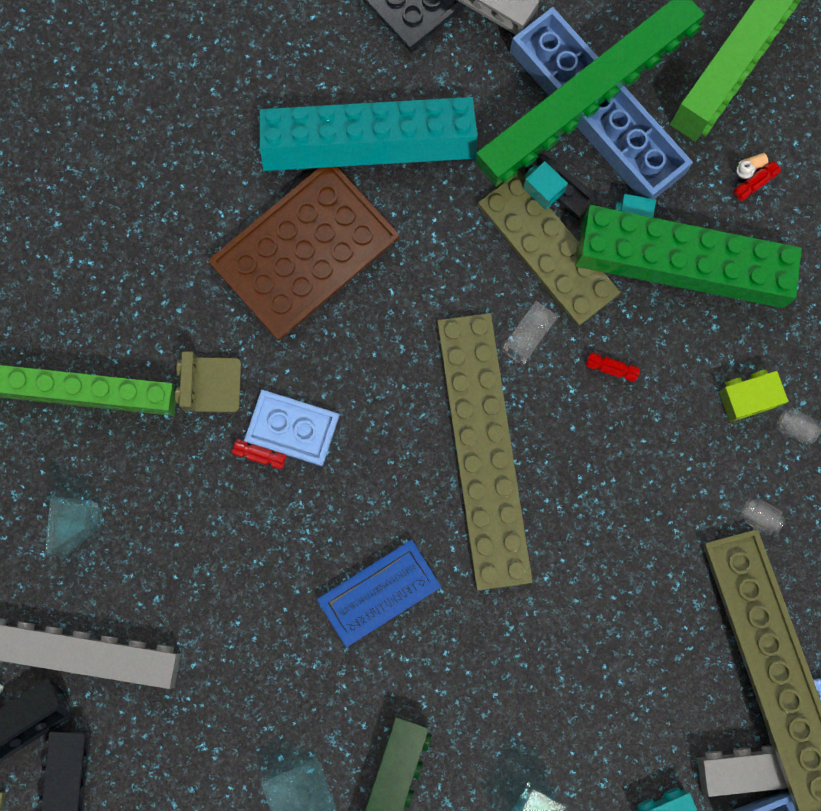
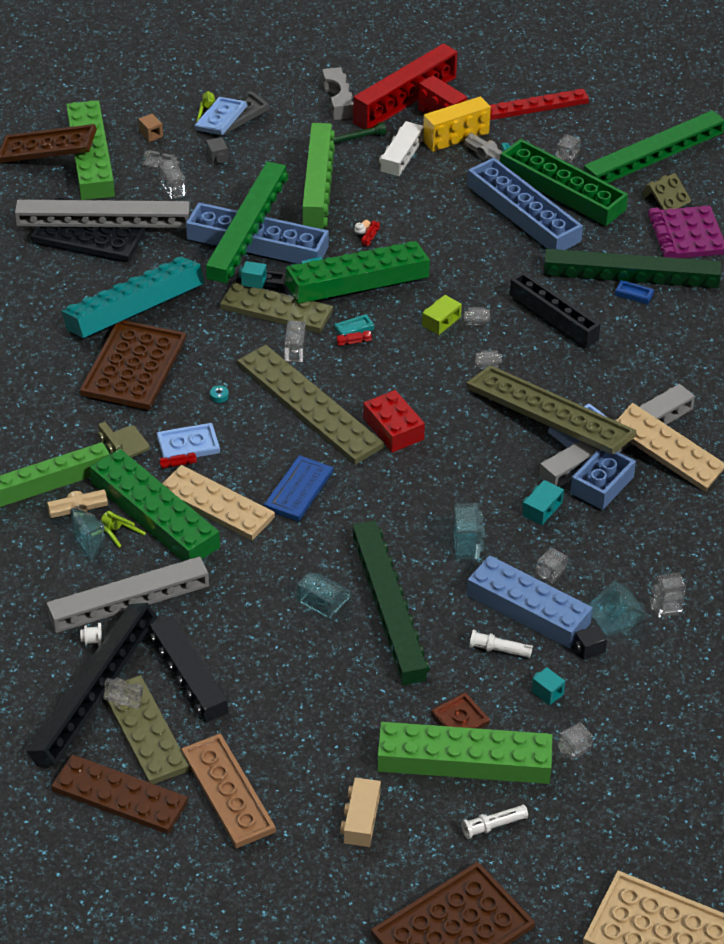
camera: 30 degrees left, 35 degrees down
(92, 458) = (77, 500): none -> tan piece
(116, 515) = (113, 522): none -> lime plant
(178, 525) = (154, 506): none -> green brick
(264, 555) = (219, 503): none -> tan plate
(380, 365) = (219, 394): none -> teal tile
(566, 556) = (393, 421): none -> red brick
(627, 344) = (354, 325): none -> teal tile

